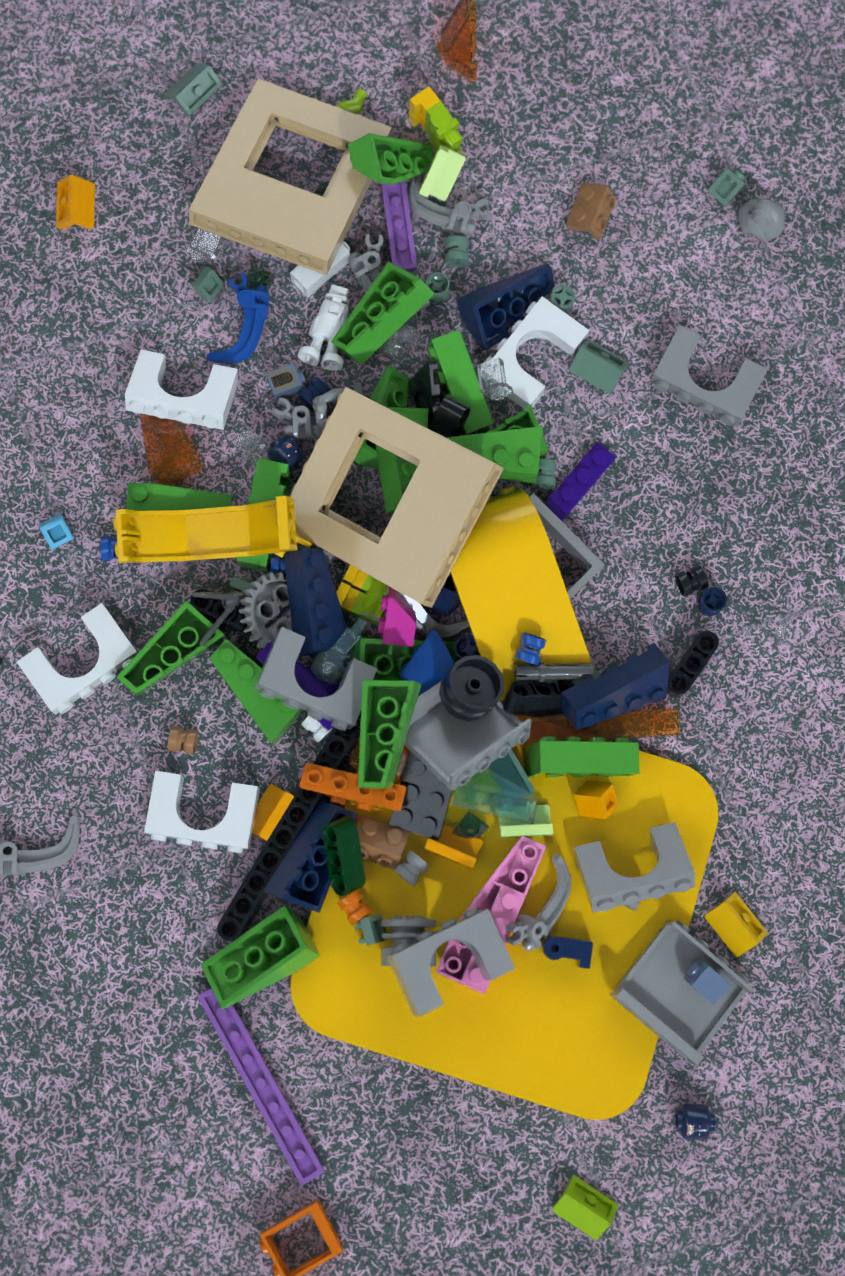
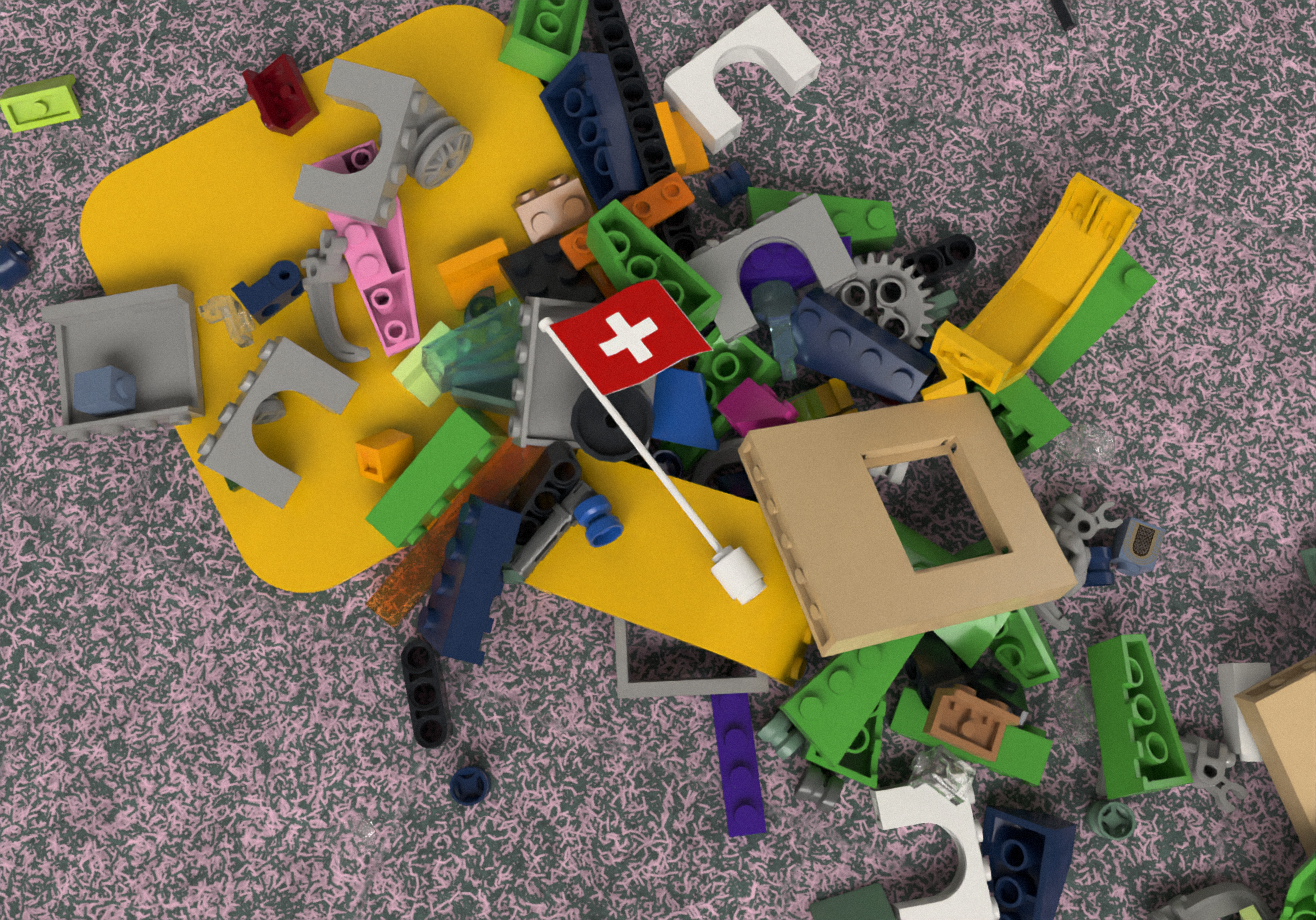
camera: 135 degrees right, 0 degrees up
(56, 531) = (1161, 182): medium azure slope -> none
(60, 691) = (980, 129): white arch -> none
(168, 450) = (1163, 367): clear orange wedge -> none
(169, 649) = (936, 180): bright green wedge -> none
(183, 740) = (831, 117): medium nougat wheel -> none
(206, 408) = (1176, 433): white arch -> none
(228, 600) = (938, 270): dark grey plant -> none
(255, 307) = (1247, 588): blue piece -> none
(260, 278) = (1285, 627): clear green tile -> none
(278, 763) = (728, 183): none -> dark blue wheel
(286, 451) = (1049, 473): dark blue head -> none
(324, 327) = (1169, 649): white piece -> none
(343, 855) = (568, 155): dark green beam -> none
(355, 907) = (511, 130): orange wheel -> none
(371, 929) = (478, 124): sand green tile -> none
(399, 226) = (1224, 846): medium lavender plate -> none
(411, 868) = (496, 214): light grey wheel -> none
(434, 703) = (625, 345): none -> flag
(455, 1059) = (281, 96): none -> dark red bracket
(456, 251) = (1141, 888): sand green wheel -> none
(461, 384) = (968, 721): none -> medium nougat bracket
(553, 434) = (819, 788): none -> dark grey wheel
(602, 950) = (238, 322): none -> clear bracket
(691, 580) = (509, 792): black wheel -> none
(736, 924) = (131, 485): yellow panel -> none

